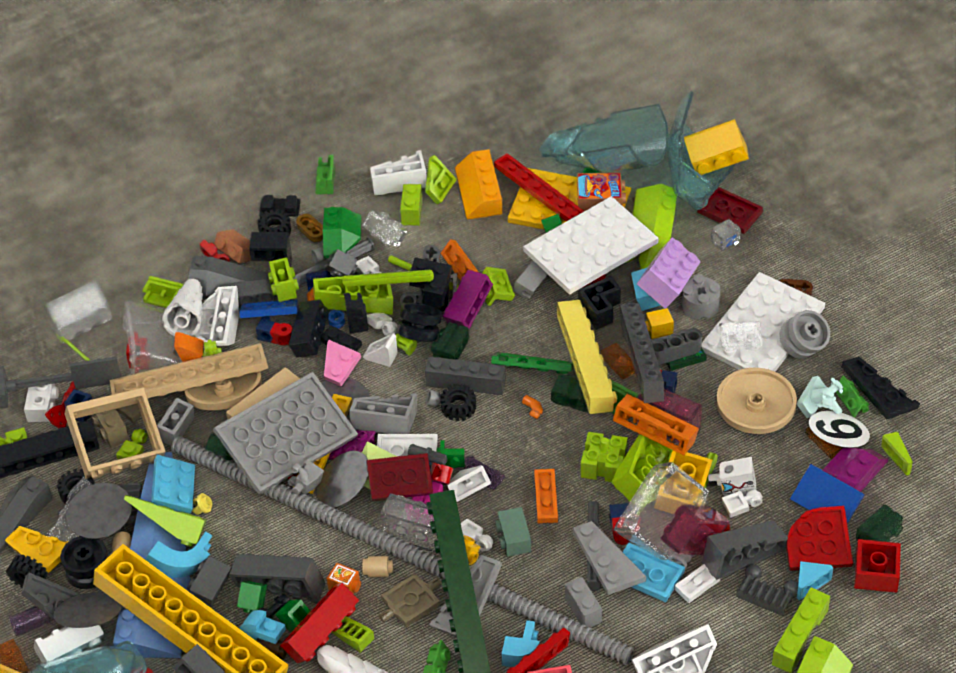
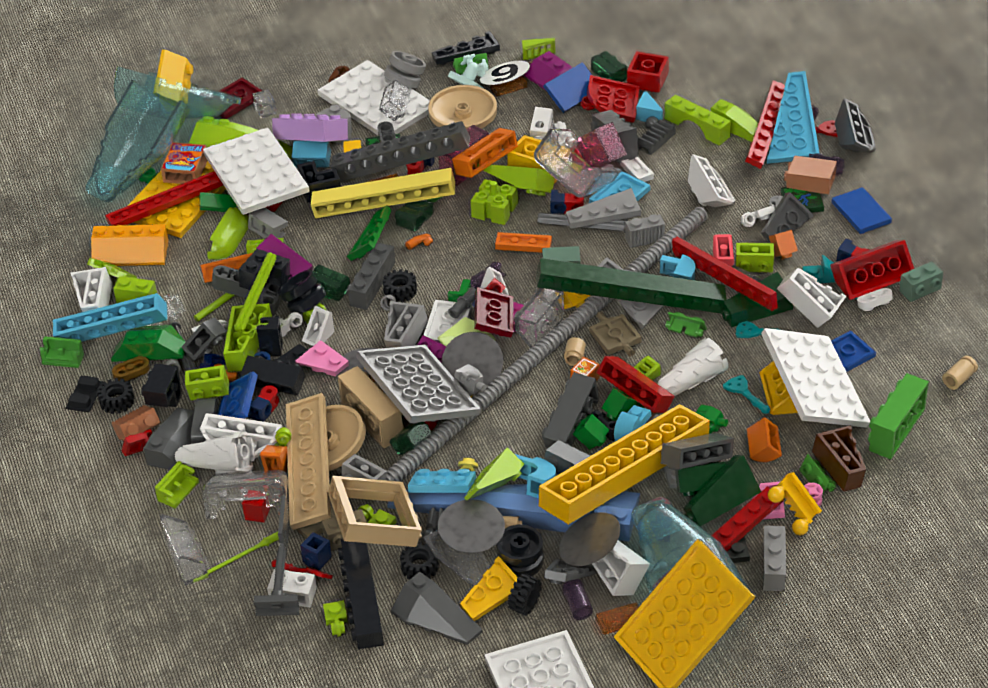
camera: 80 degrees left, 5 degrees down
(353, 191) = (111, 318): none -> medium azure brick
(506, 253) = (228, 234): none -> lime brick

